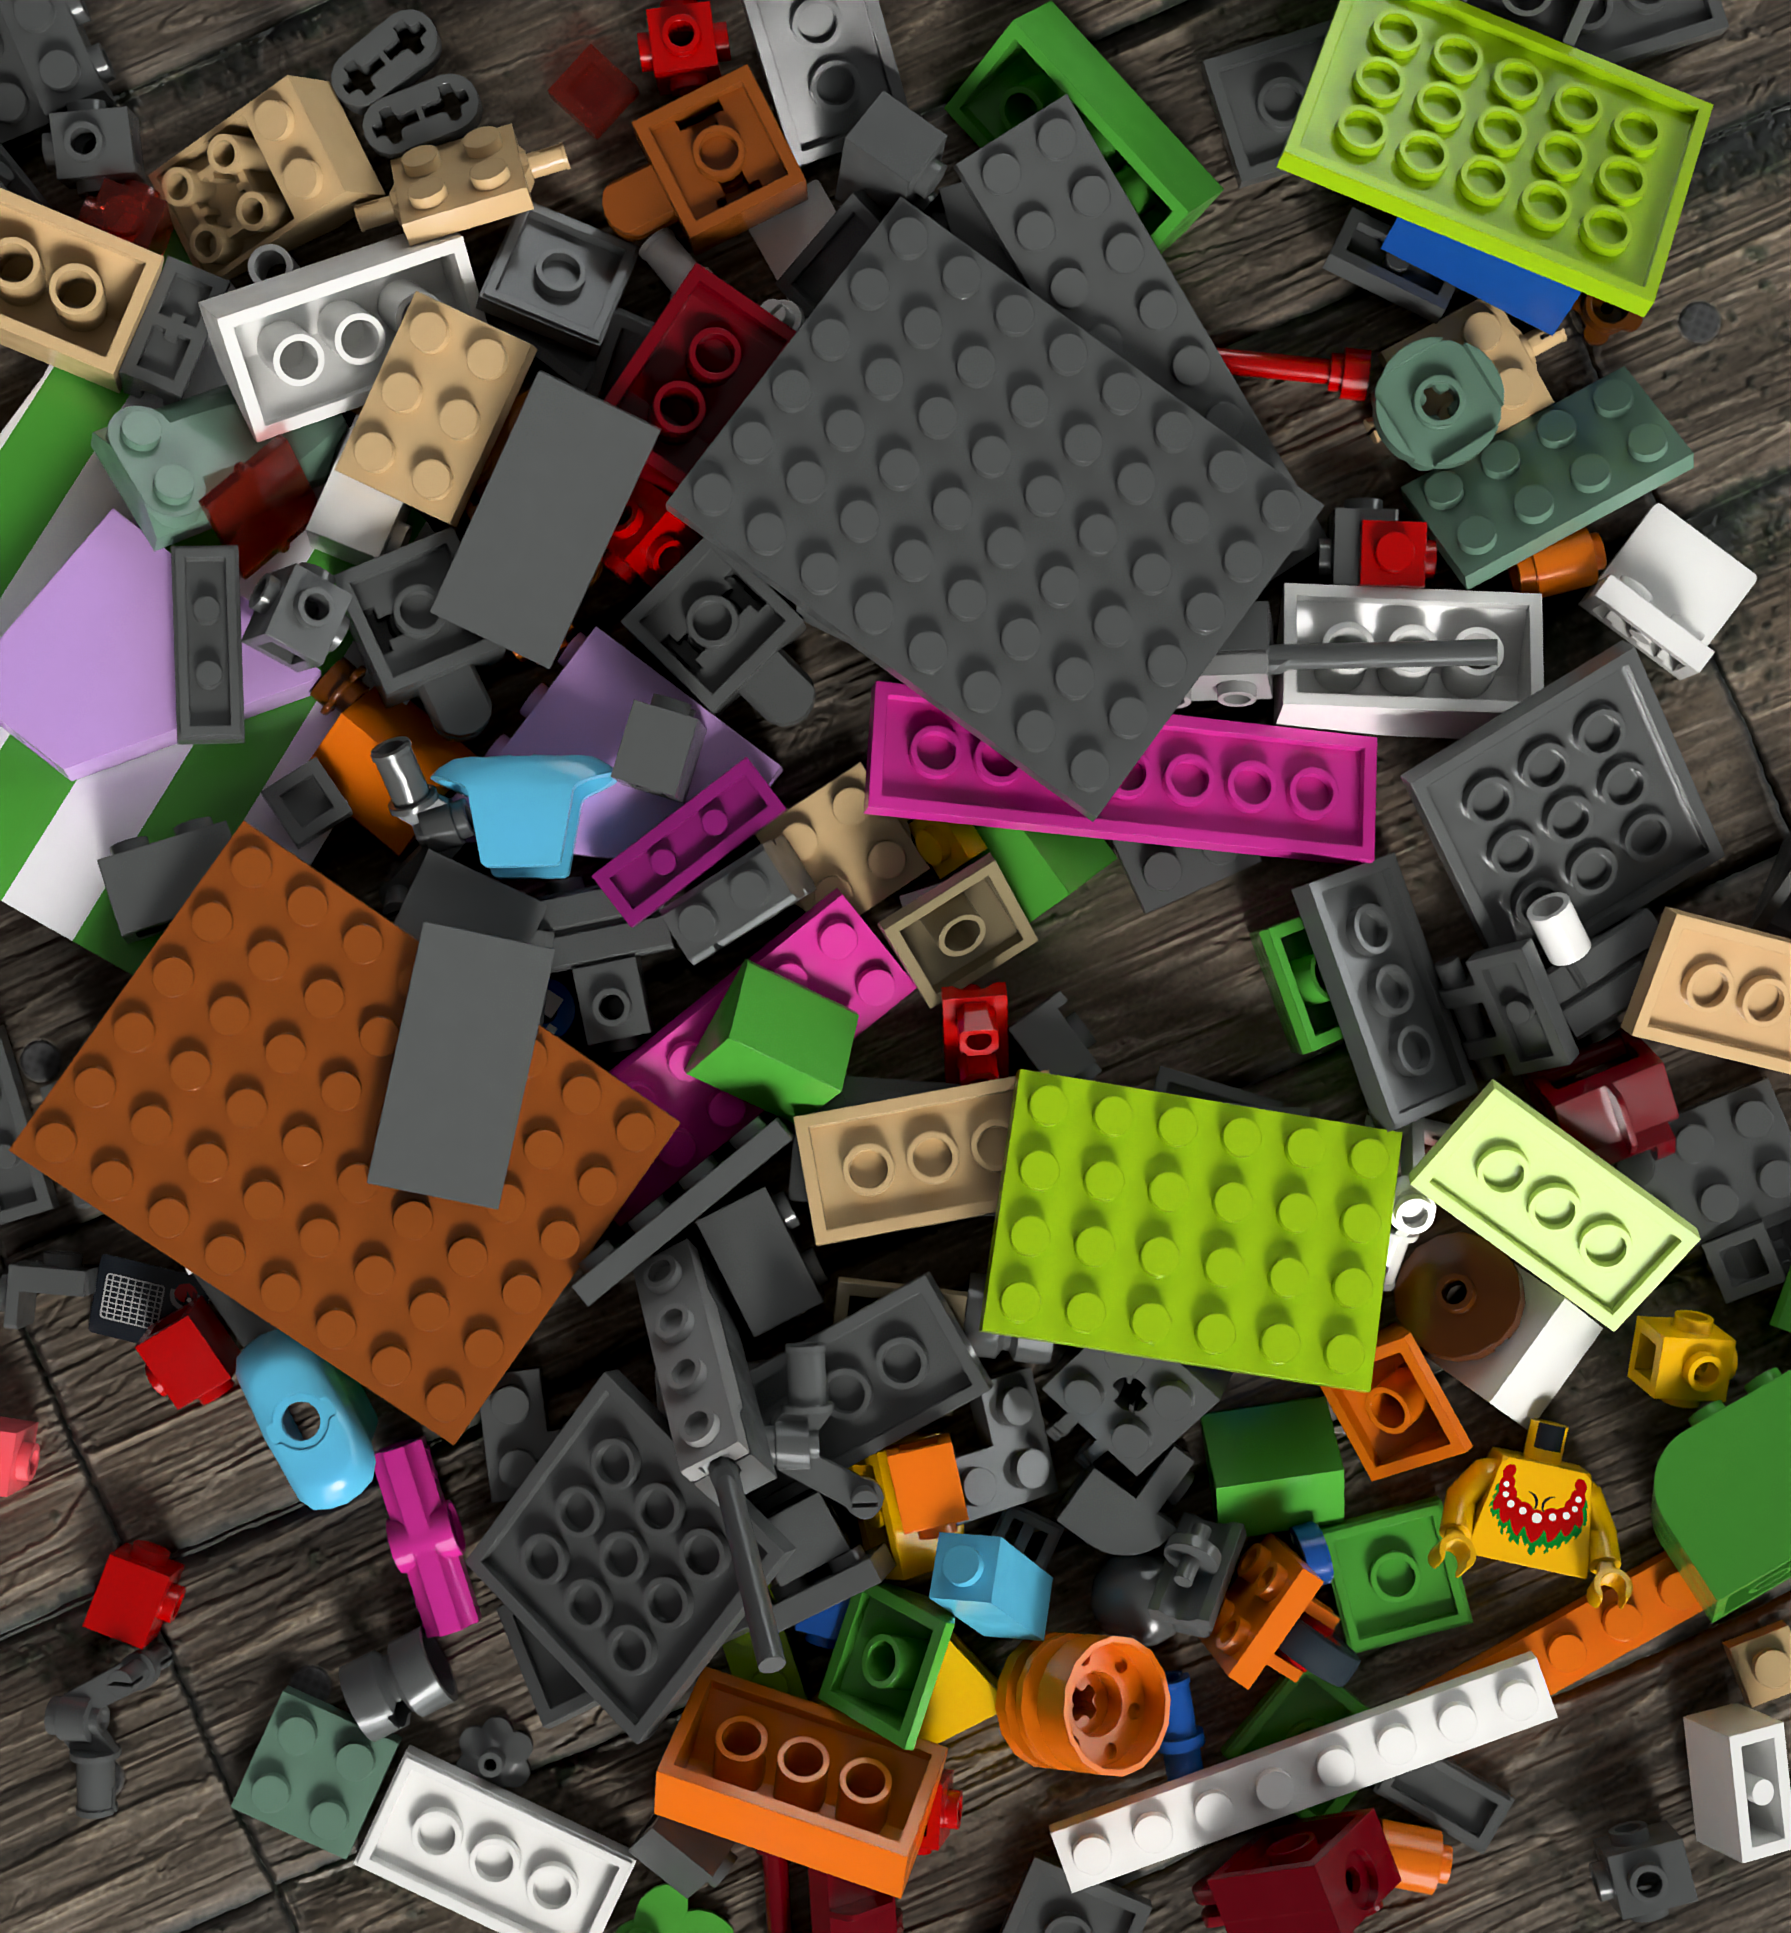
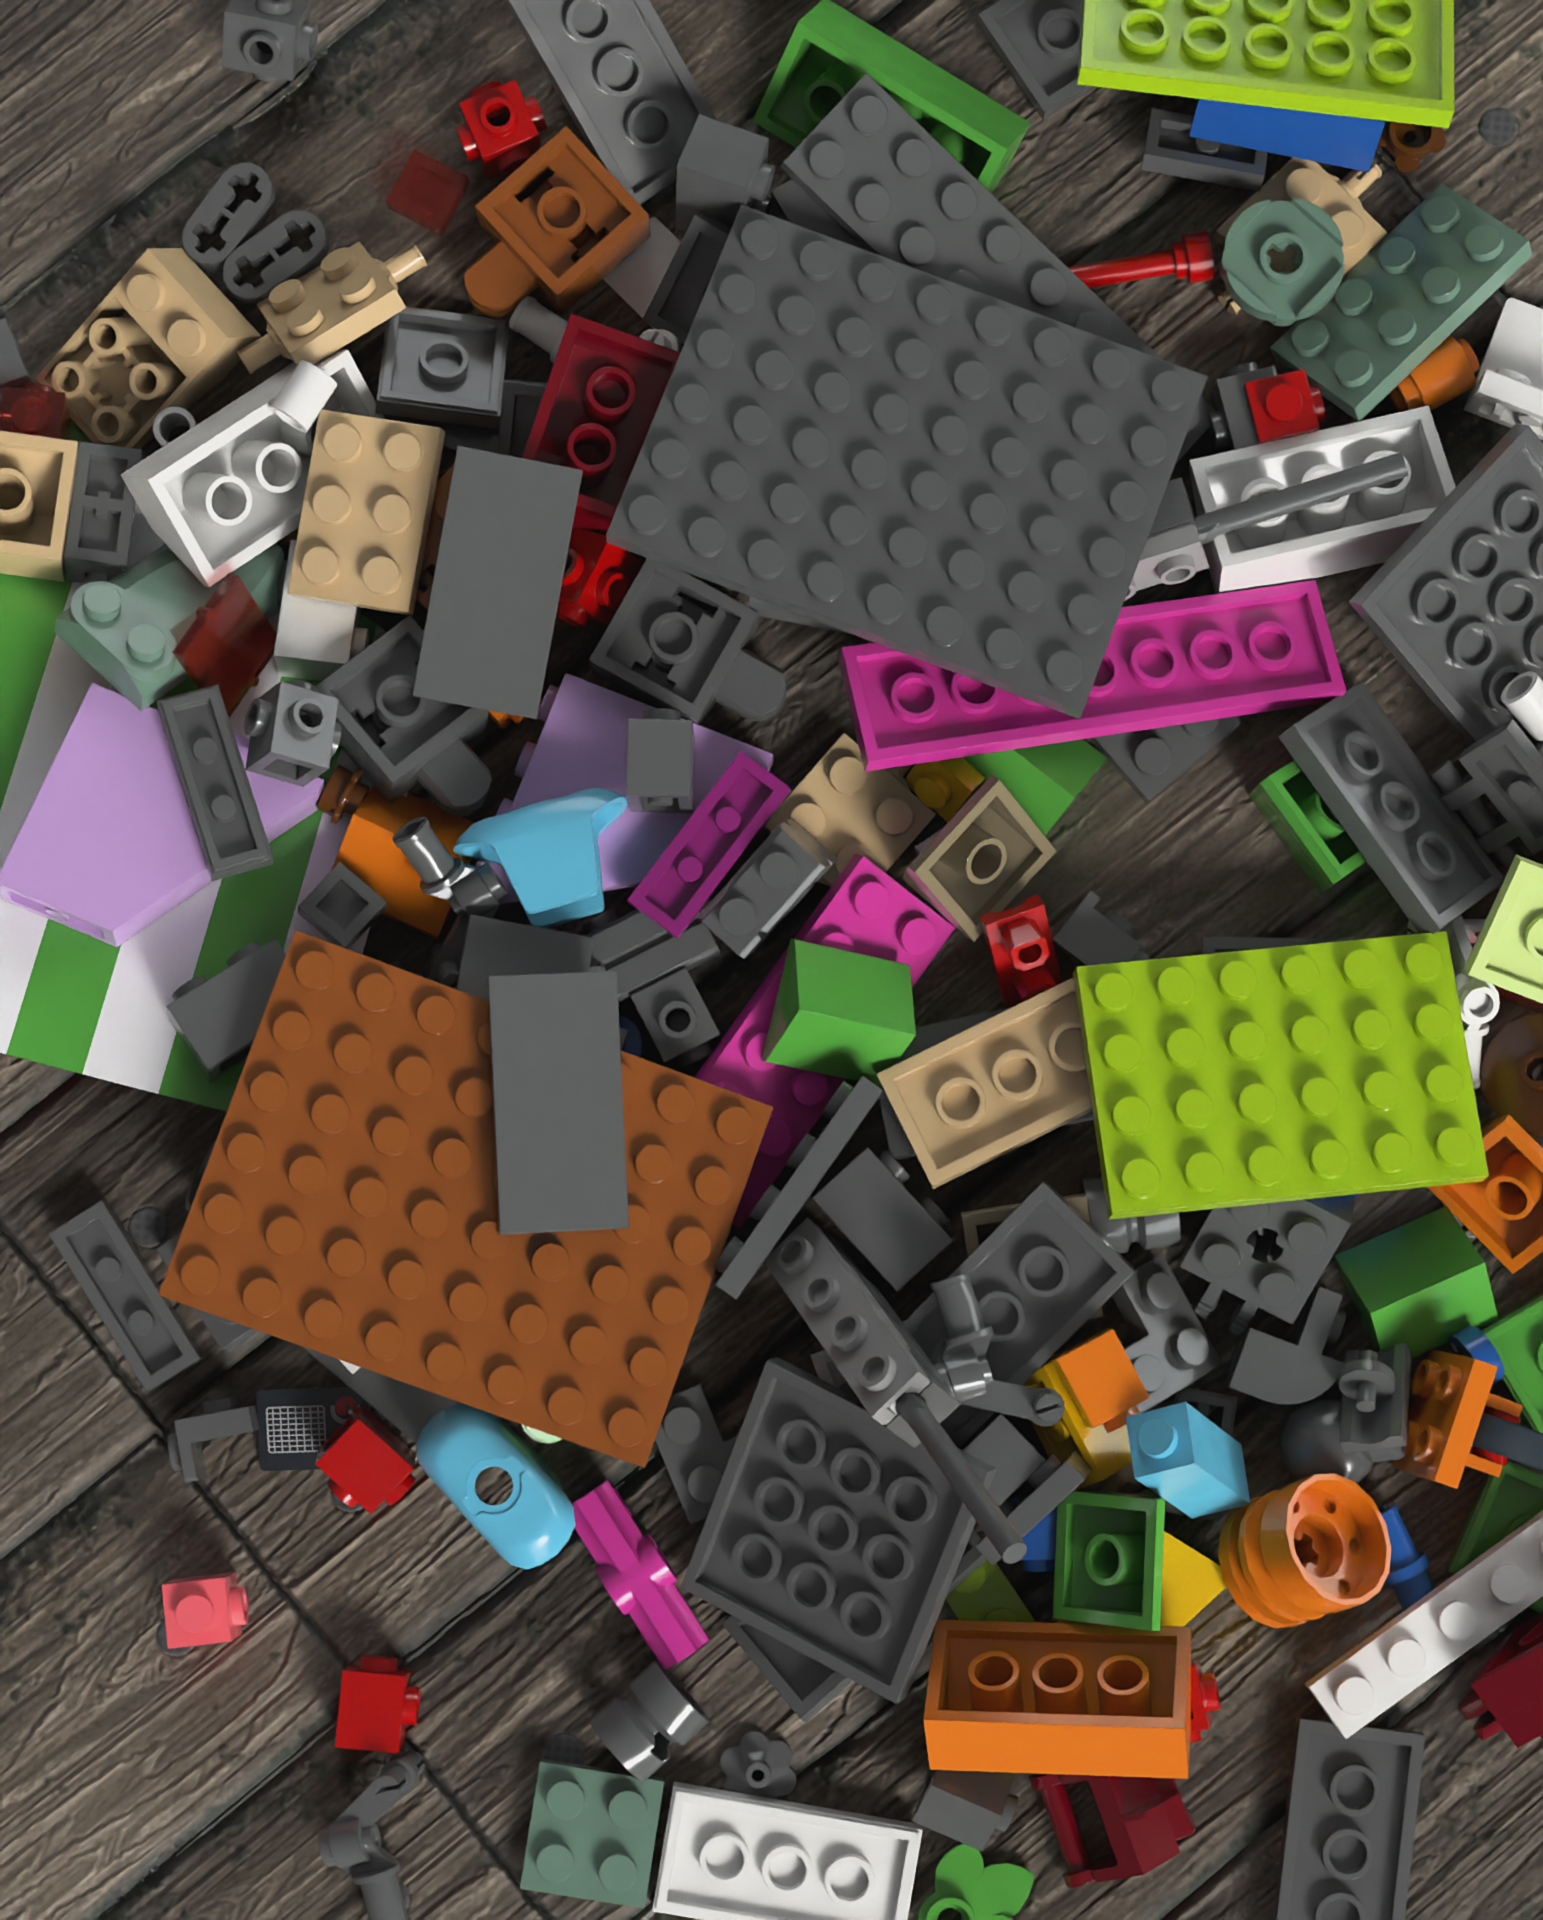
camera: 20 degrees left, 5 degrees down
(401, 273) = (303, 396): none -> white hinge

